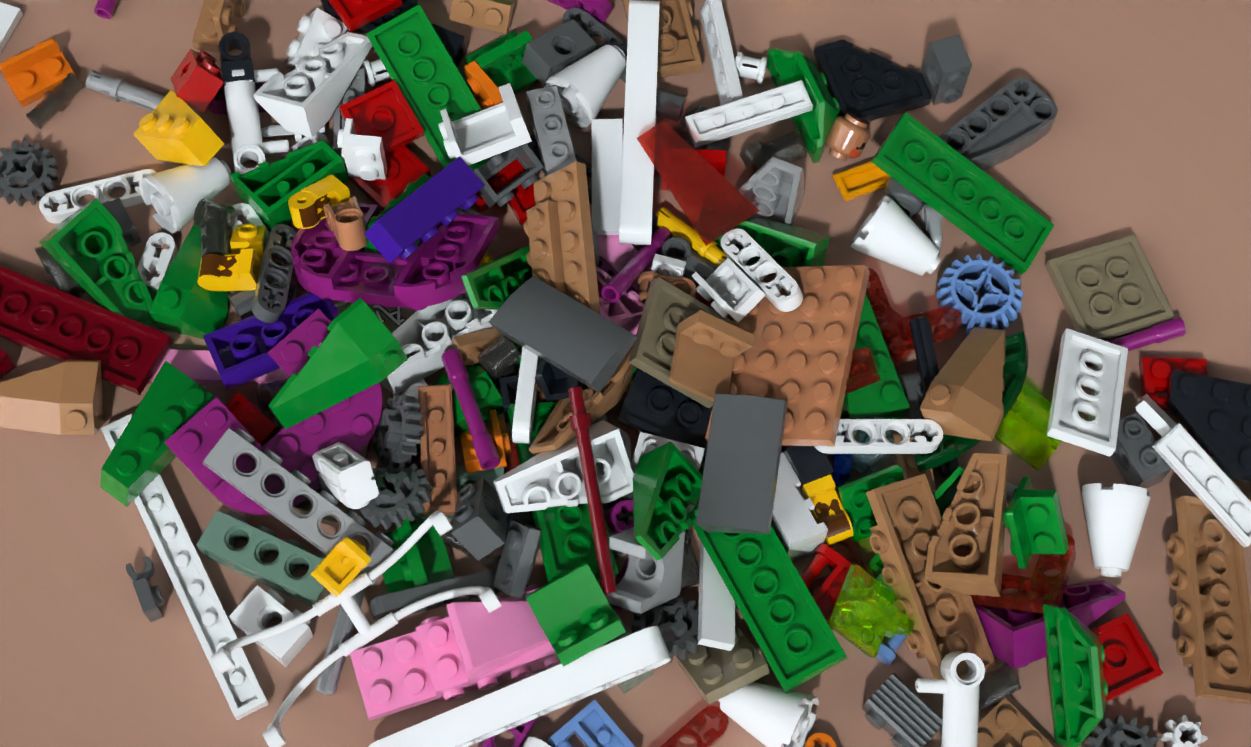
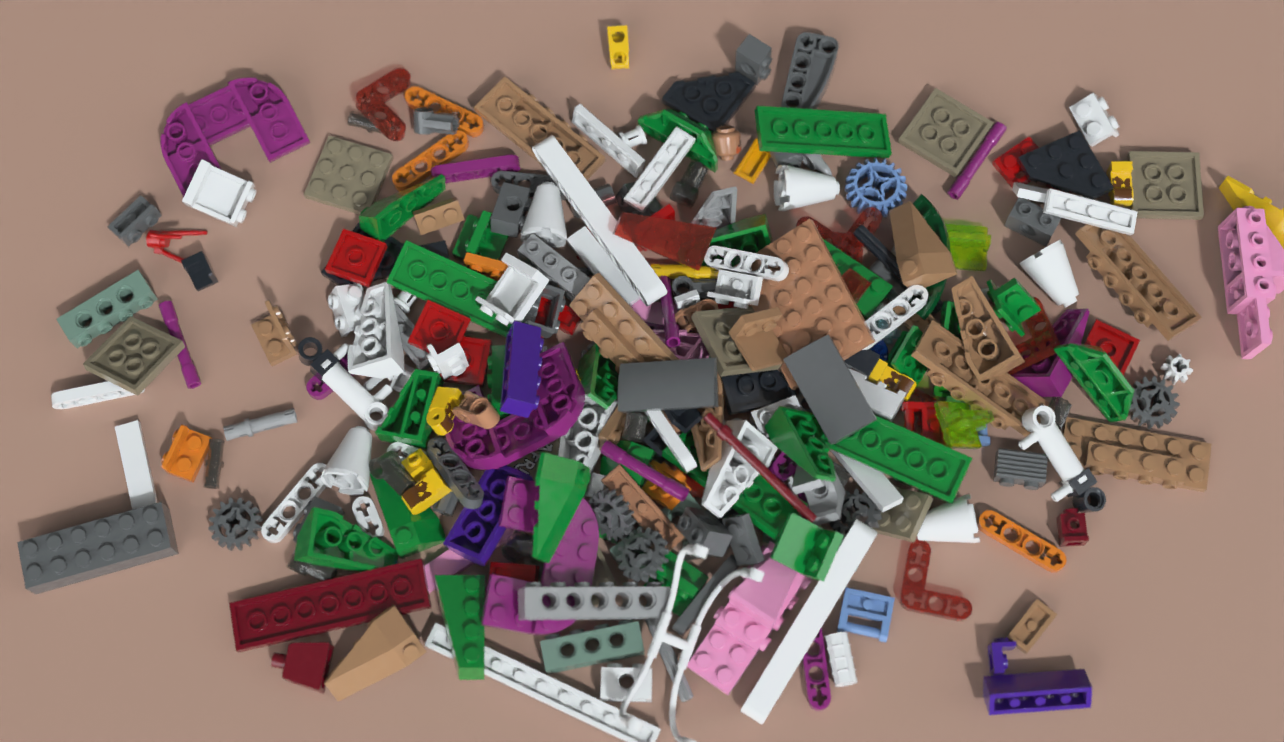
camera: 30 degrees left, 5 degrees up
(149, 597) = (539, 721): dark grey plate -> none
(177, 133) = (319, 428): yellow wedge -> none
(197, 79) = (301, 385): red brick -> none
(341, 565) = (649, 618): yellow bracket -> none
(346, 475) = (608, 563): white brick -> none
(1105, 384) = (988, 193): white plate -> none

